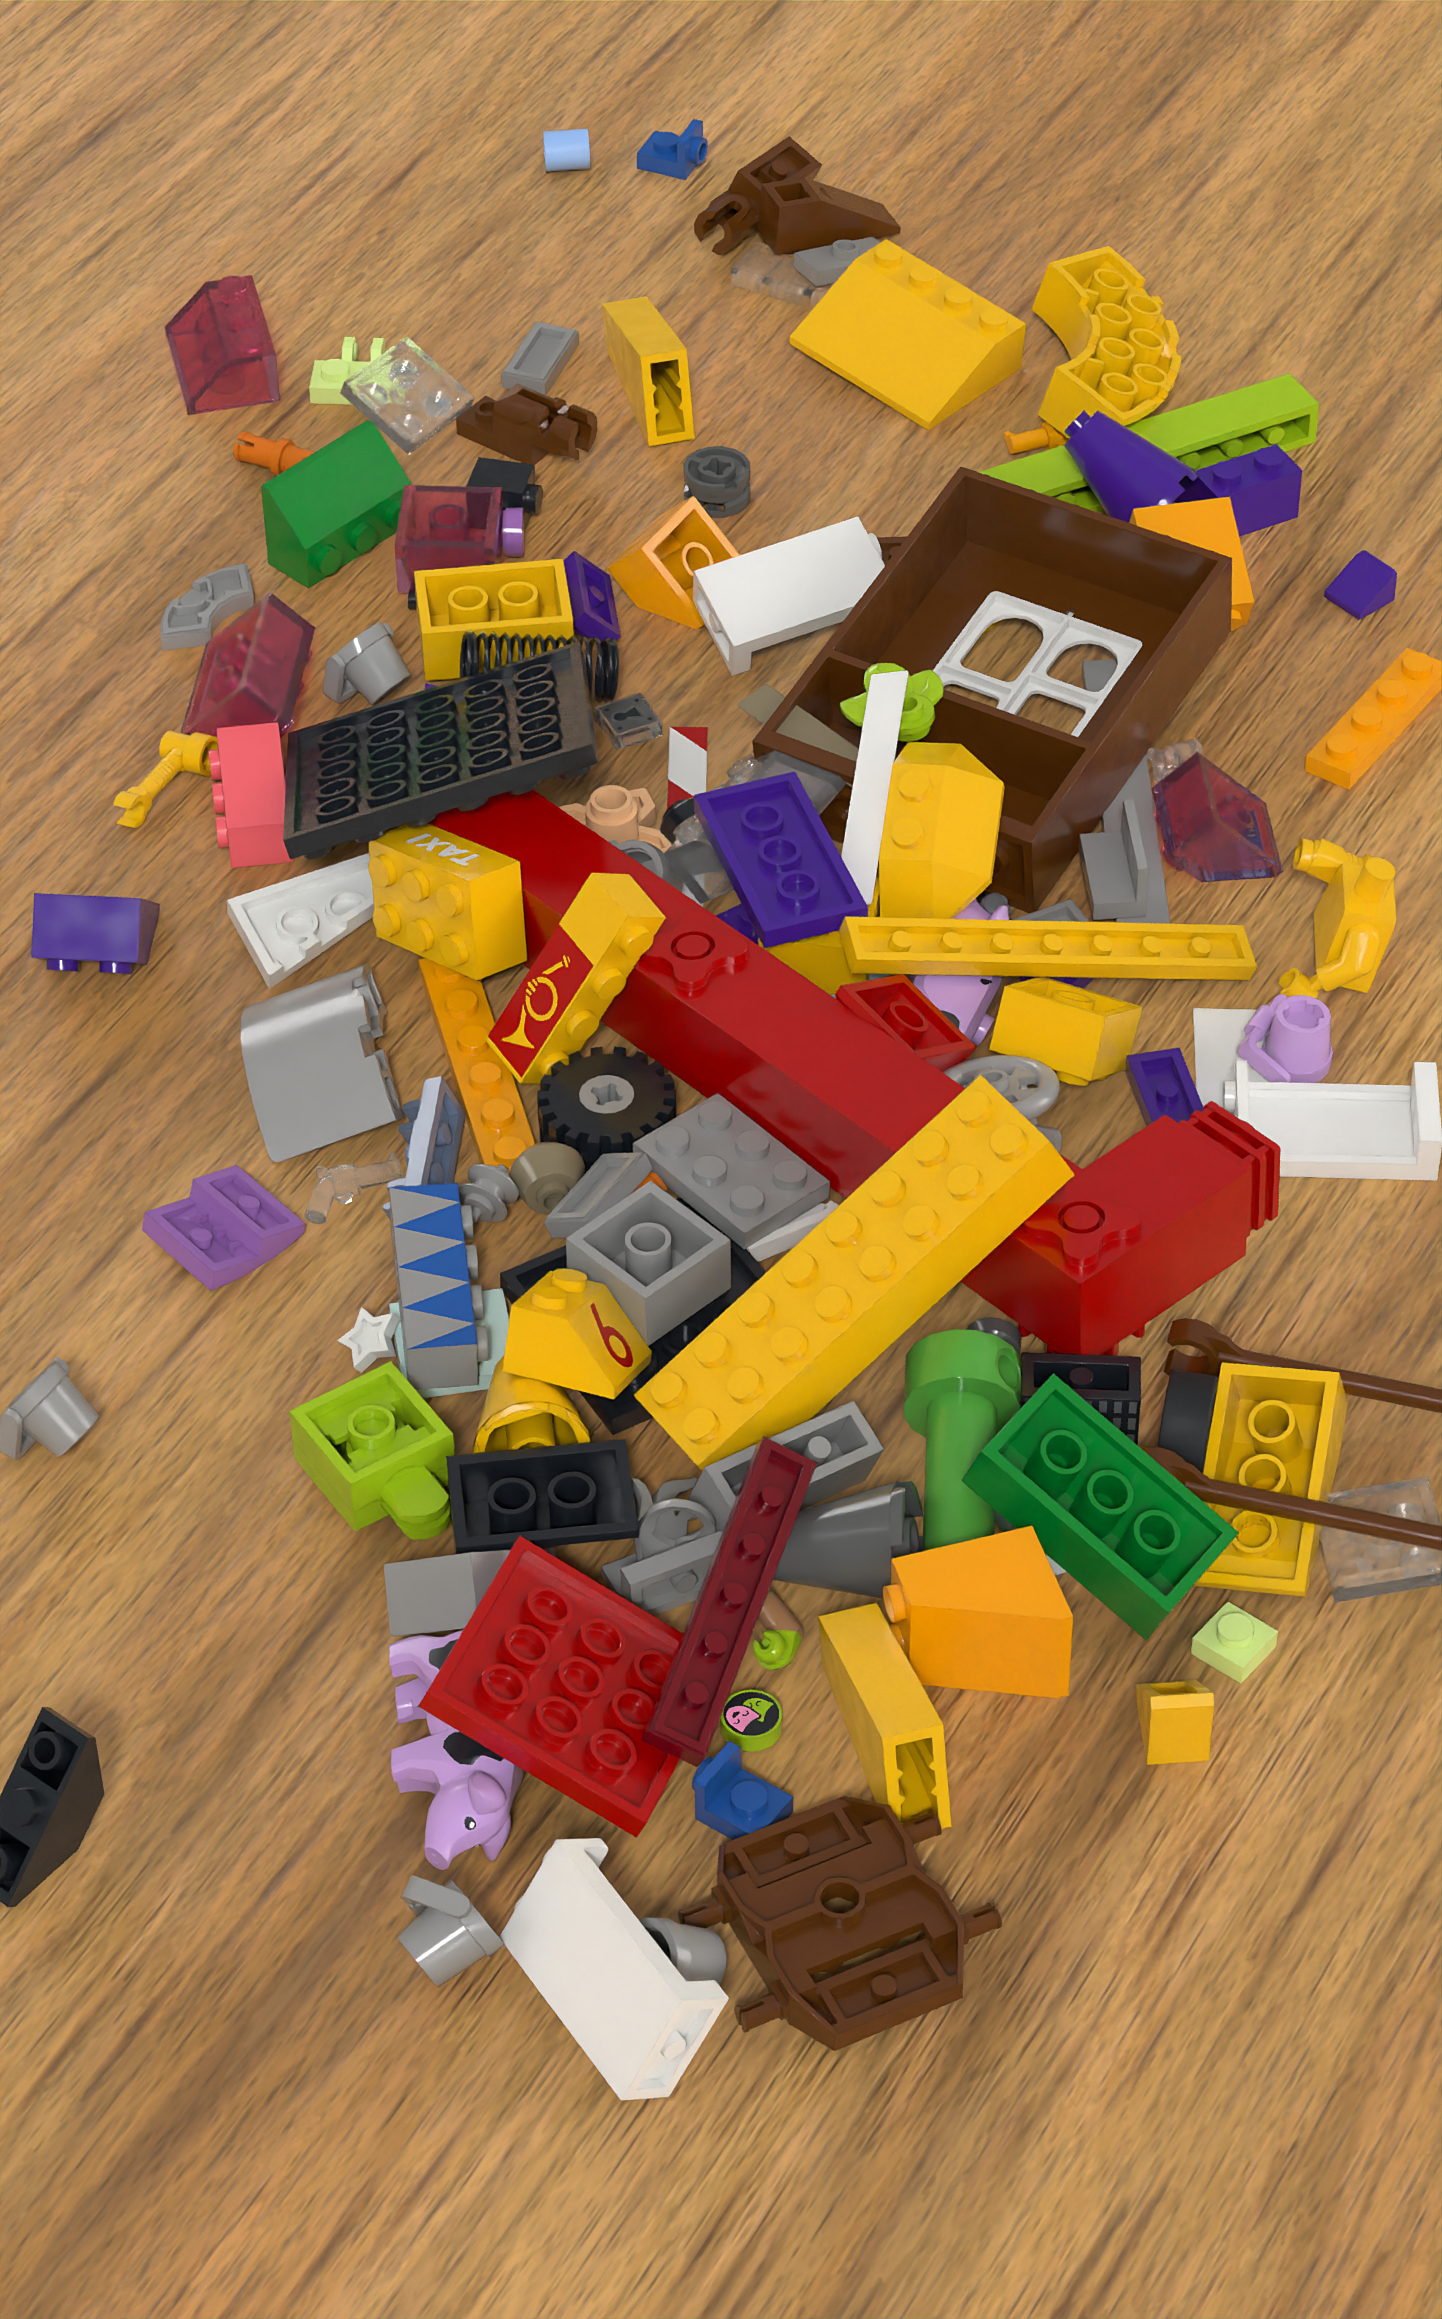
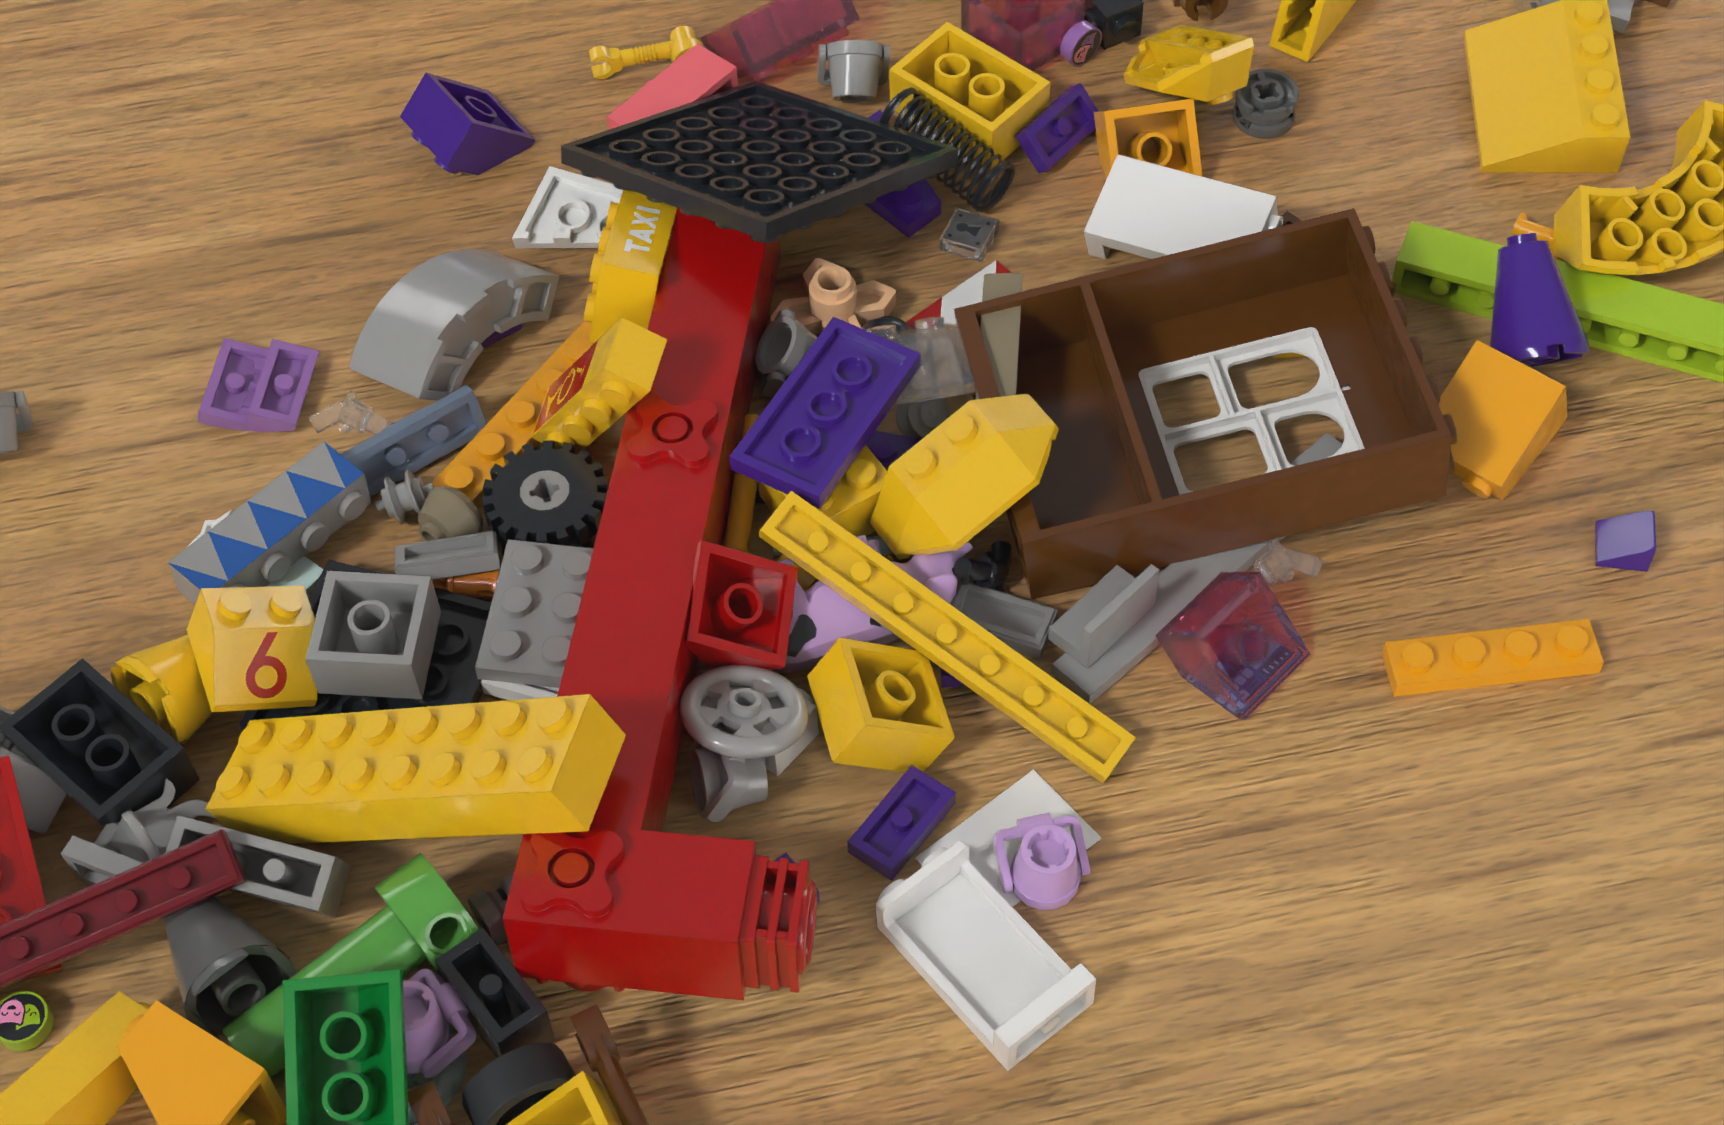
camera: 50 degrees right, 10 degrees up
(377, 1452) = (87, 609): lime brick -> none
(640, 477) = (1192, 63): none -> yellow wedge
(781, 1635) = (126, 978): arm -> none
(872, 779) = (988, 386): white sticker -> none
(918, 712) = (1066, 355): lime plate -> none
(1260, 485) = (1631, 393): dark purple slope -> none
(1349, 921) = (1203, 806): yellow torso -> none

